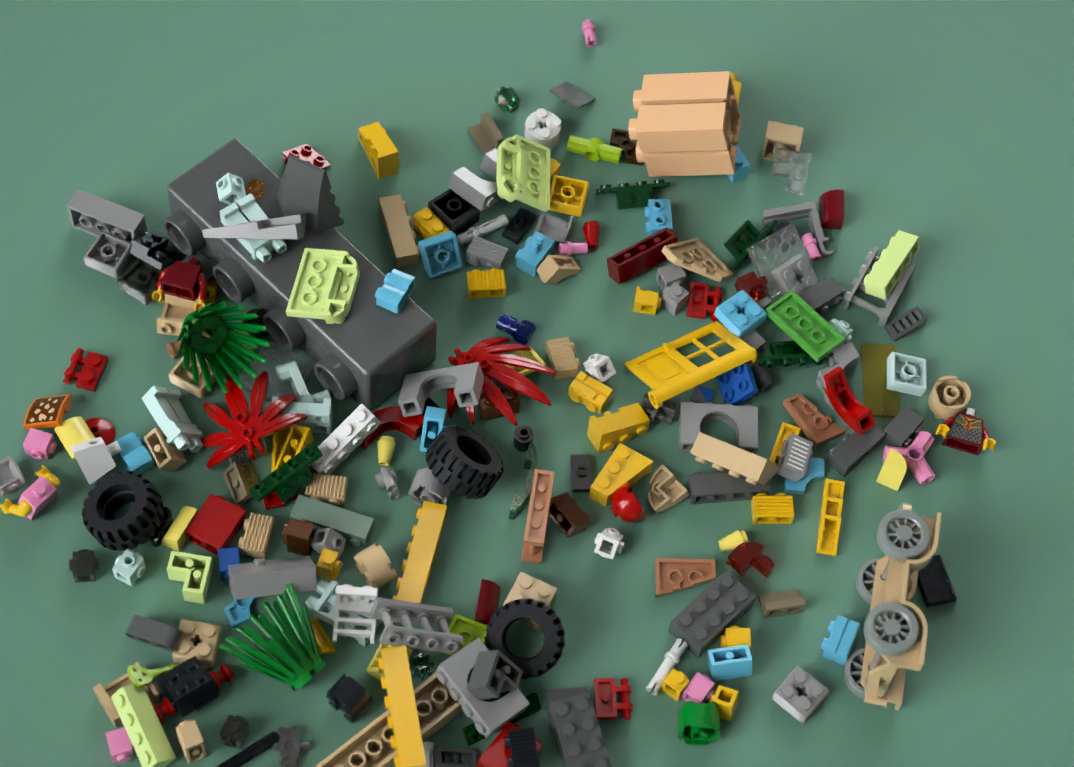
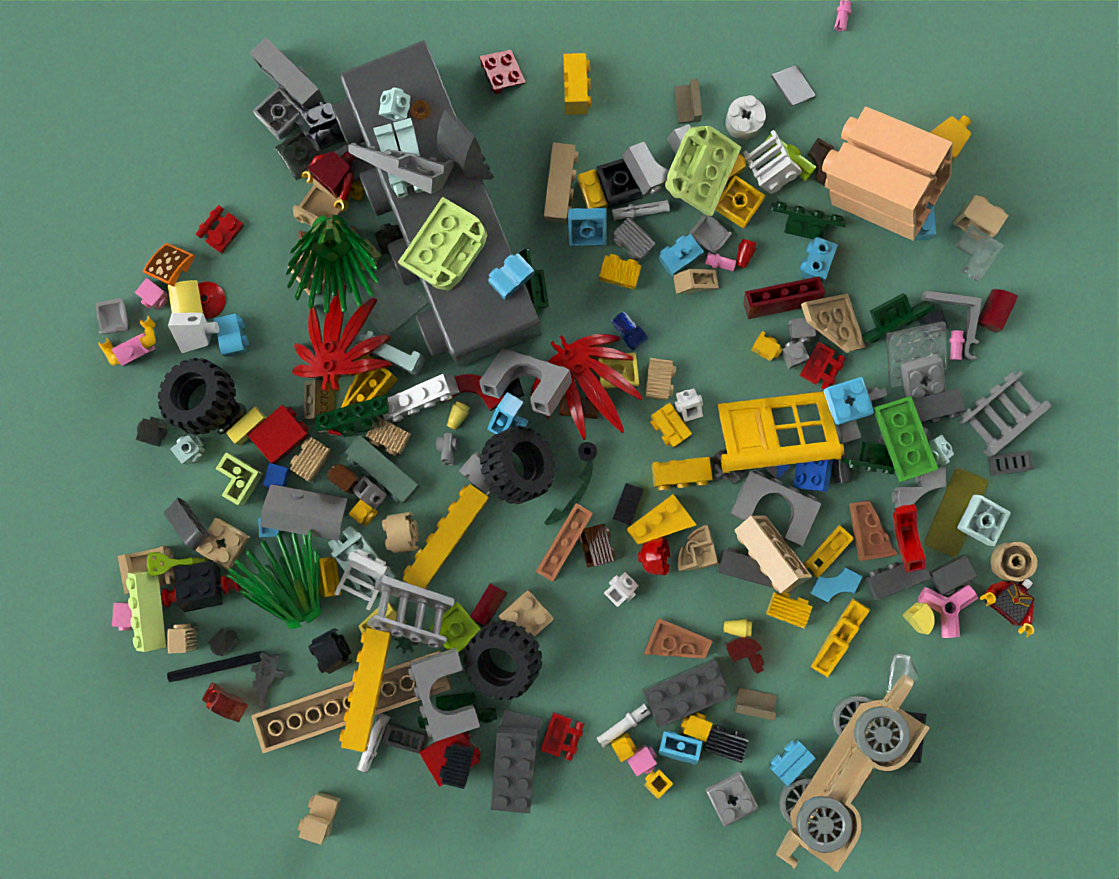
camera: 35 degrees right, 25 degrees up
(165, 455) = (258, 342): tan brick -> none
(172, 418) = (275, 316): light aqua hips -> none
(290, 372) = (397, 305): light aqua beam -> none
(493, 674) = (451, 694): dark grey brick -> none
(507, 99) = (726, 68): clear green head -> none
(519, 225) = (678, 217): black plate -> none
(590, 160) = (778, 171): none -> white plate
(698, 723) = (625, 795): green brick -> none
(752, 285) = (874, 371): clear red brick -> none
(771, 646) = (726, 744): none -> black brick
(794, 458) = (832, 570): light grey brick -> none
(891, 264) = (1026, 400): yellowish green brick -> none

